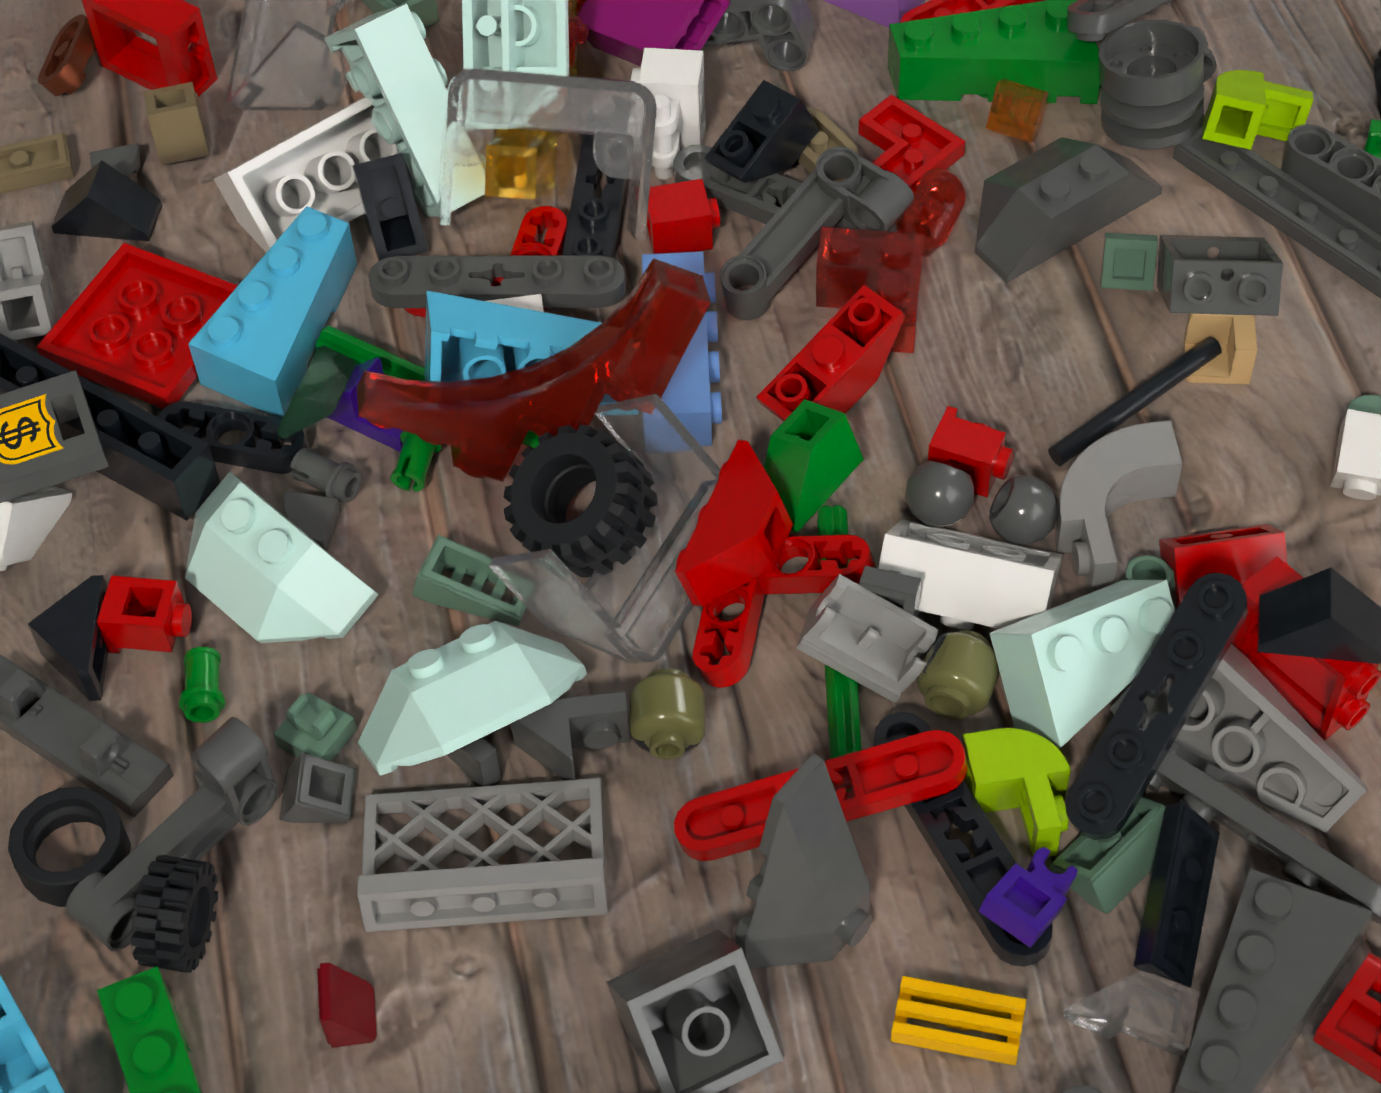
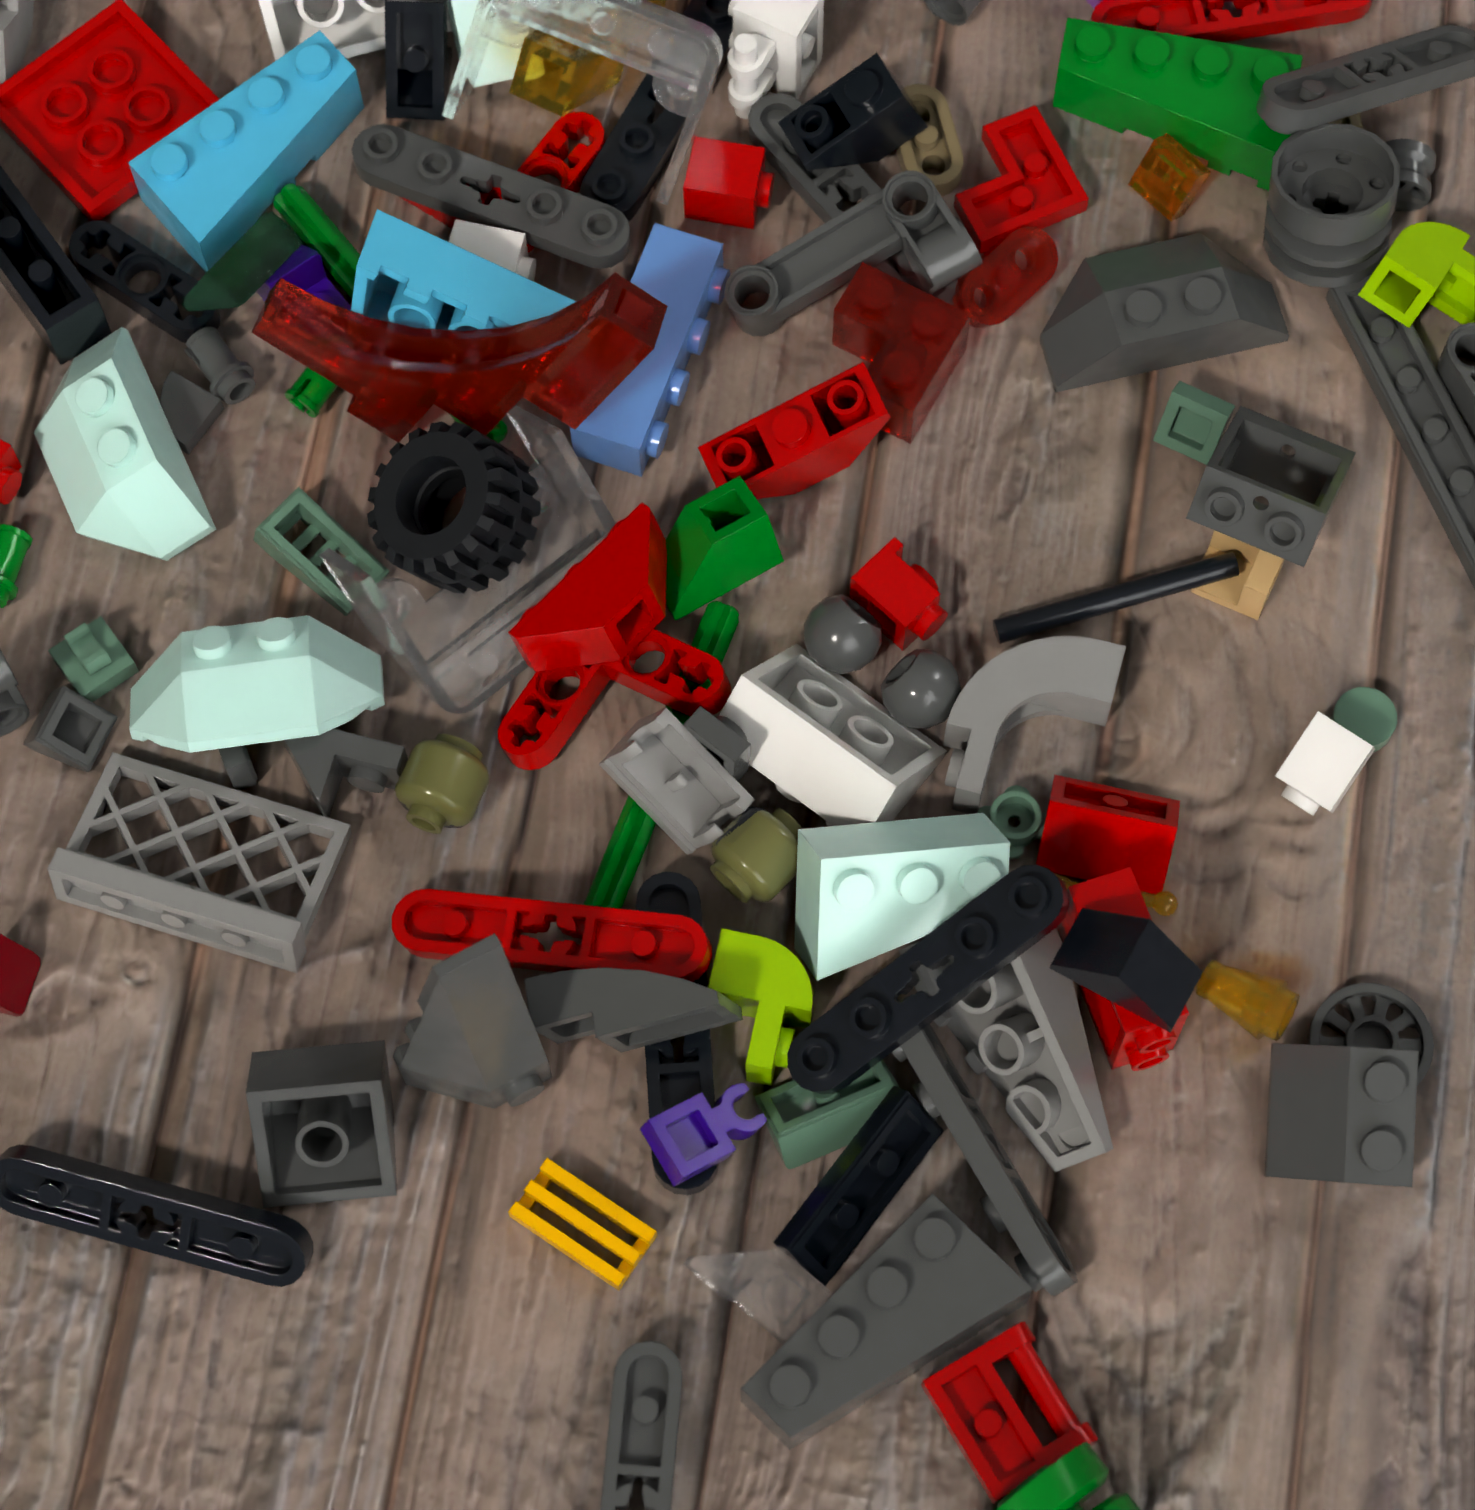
camera: 20 degrees right, 15 degrees up
(926, 815) = (623, 1006): none -> dark grey slope

